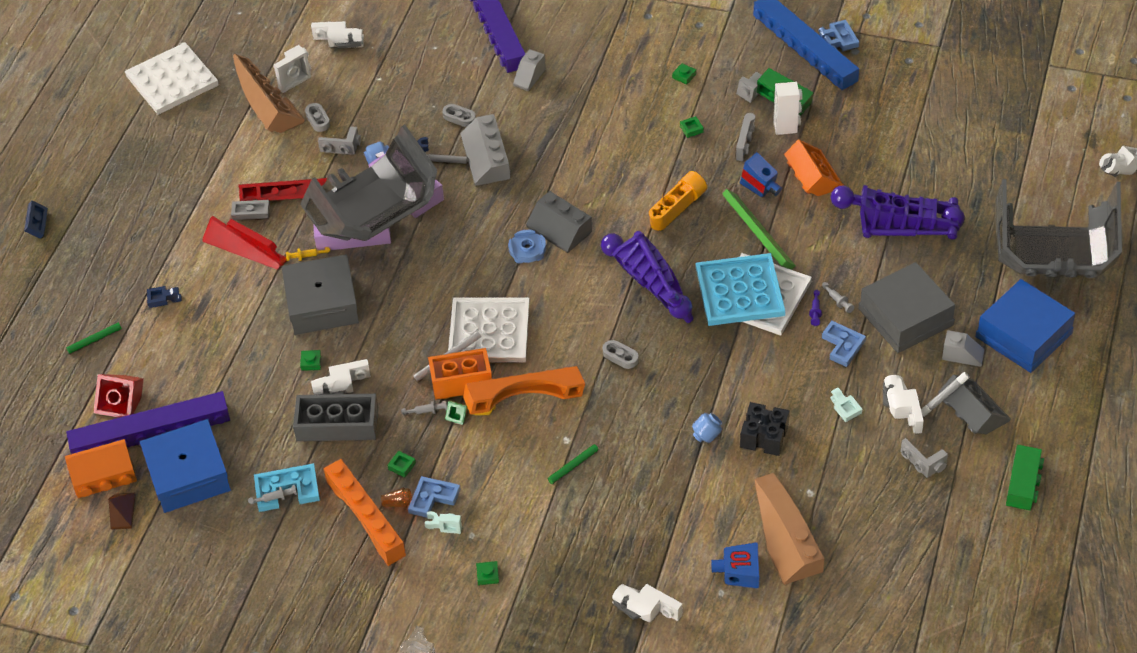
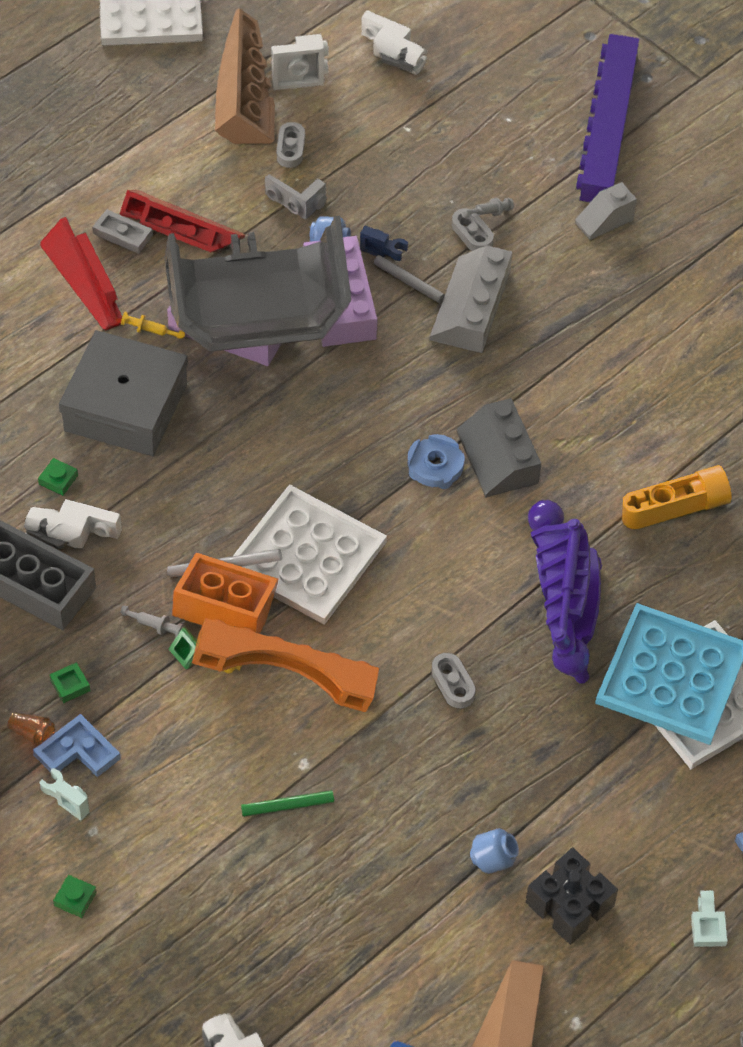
camera: 25 degrees right, 5 degrees up
(463, 96) = (494, 207): none -> light grey piece

